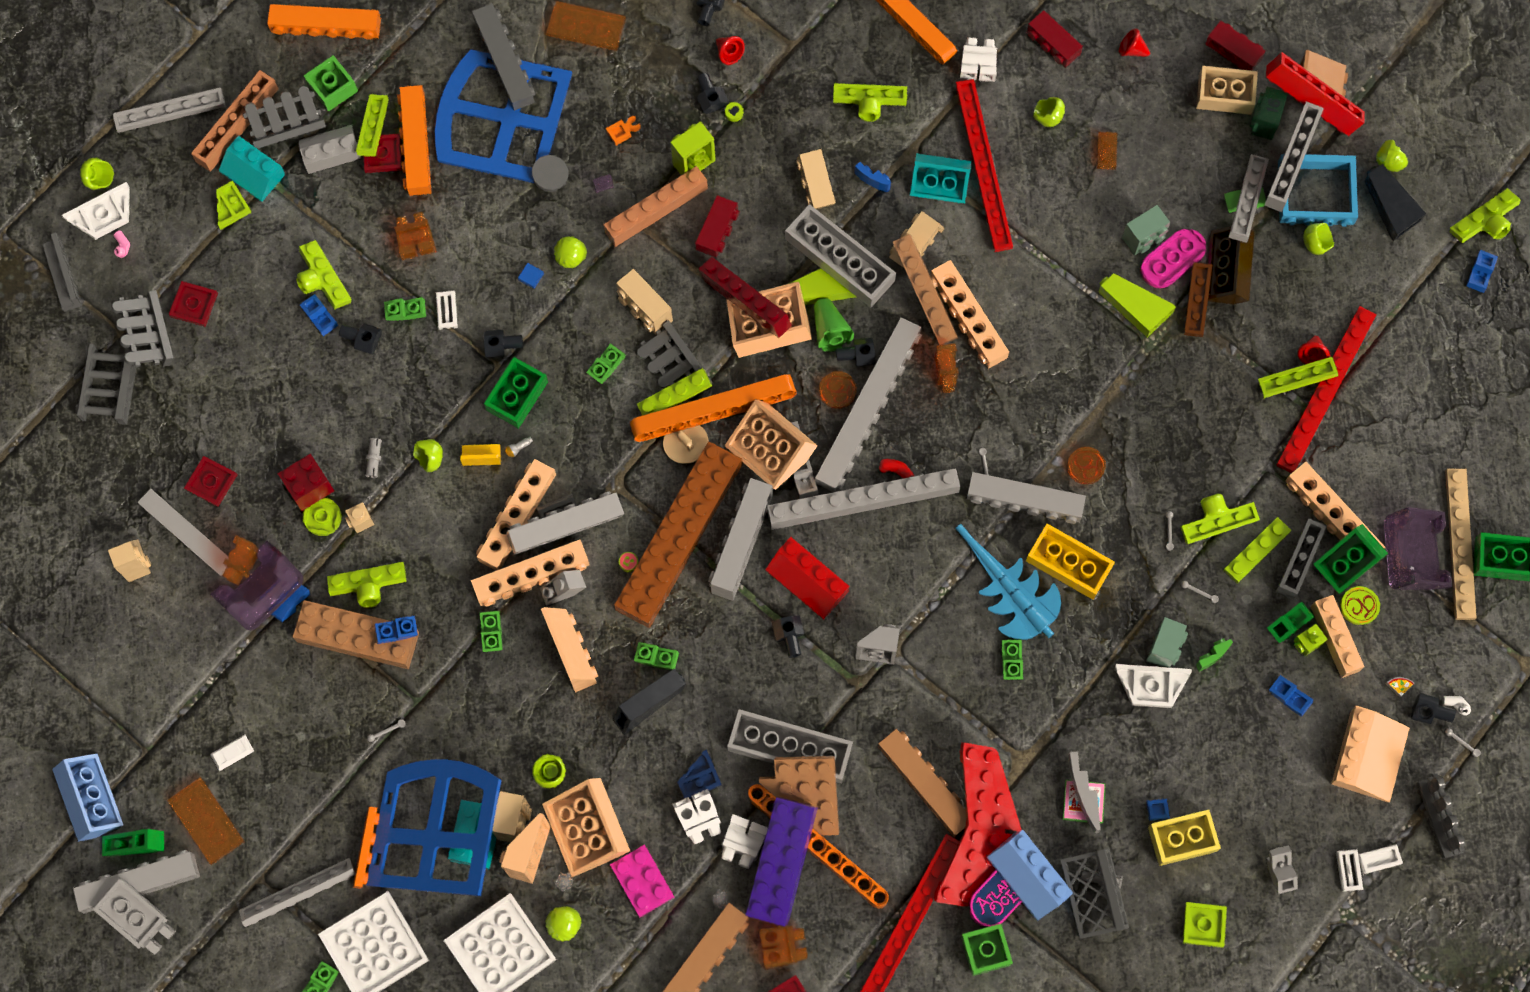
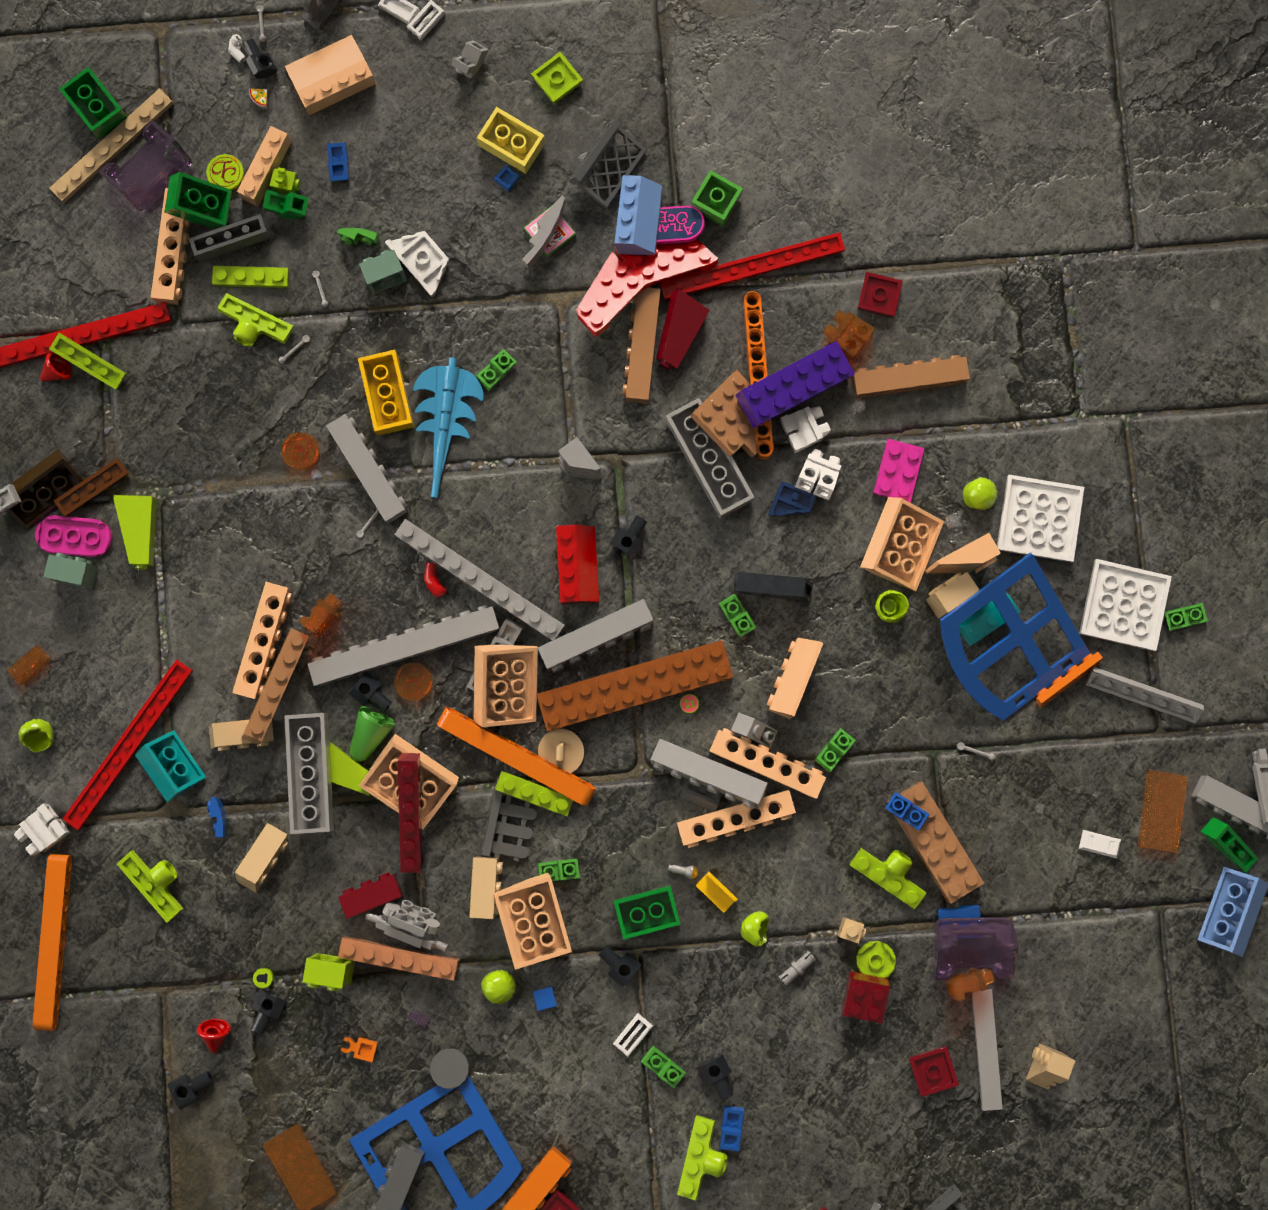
camera: 135 degrees left, 10 degrees up
(414, 233) = (600, 1122): clear orange hips -> none
(588, 310) = (532, 921): none -> light nougat slope
(671, 232) = (409, 924): none -> light grey piece
(910, 822) = (680, 328): none -> dark red slope

